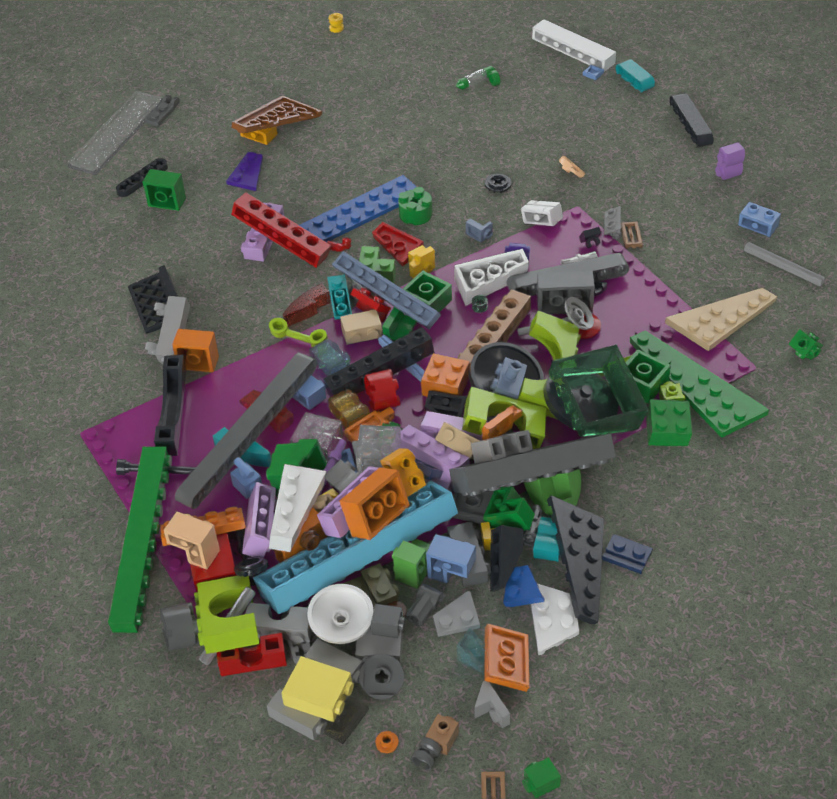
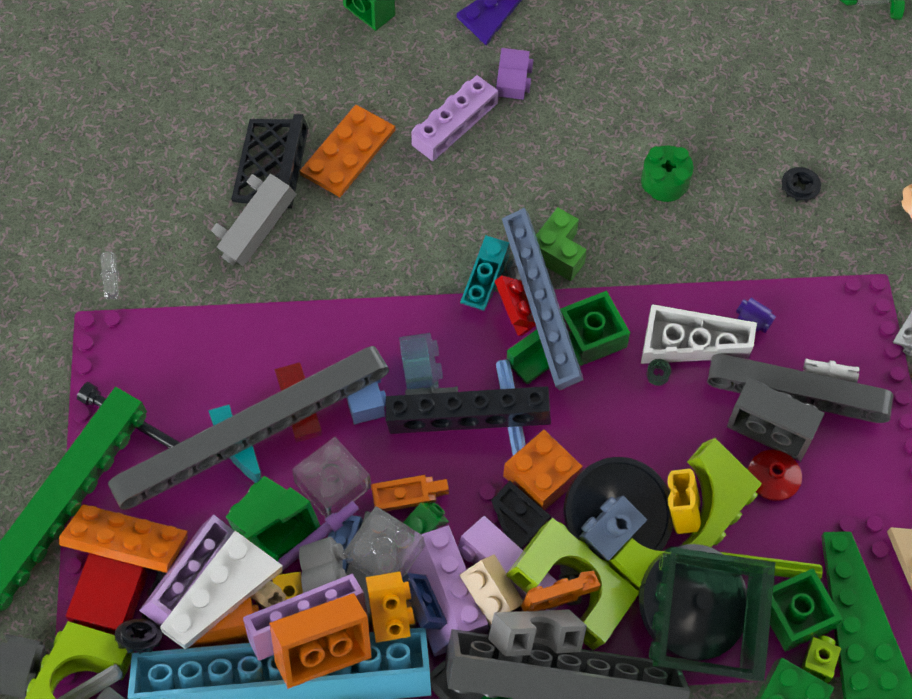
camera: 25 degrees right, 15 degrees up
(90, 402) = (110, 275): none -> clear axle
(168, 429) = (166, 371): black arch -> none
(193, 536) = (89, 571): light nougat brick -> none
(198, 349) = (266, 265): orange brick -> none
(205, 276) = (347, 150): none -> orange plate
(244, 477) = (214, 493): medium blue brick -> none
(279, 329) = (387, 283): lime piece -> none
(280, 230) = (447, 75): red brick -> none
(285, 194) = (513, 72): none -> medium lavender brick
(306, 305) = (440, 260): clear red slope -> none
(310, 540) = (222, 642): reddish brown plate -> none
(338, 247) = (538, 187): red arm -> none
(347, 407) = (395, 452): clear yellow brick -> none
(358, 210) = (588, 141): plate -> none
(361, 326) = (485, 333): tan brick -> none
(382, 390) = (449, 451): red brick -> none
(396, 242) = (613, 218): red wing -> none
(421, 259) = (624, 266): yellow brick -> none
(479, 231) = (726, 251): sand blue bracket -> none
(500, 324) = (700, 393): medium nougat brick -> none
(541, 351) = (684, 501): none -> yellow brick
(542, 213) = (826, 267): white brick -> none
(575, 316) = (762, 464): light grey dish -> none
(590, 235) = (868, 338): black tile -> none
(600, 287) = (830, 425): black tile -> none

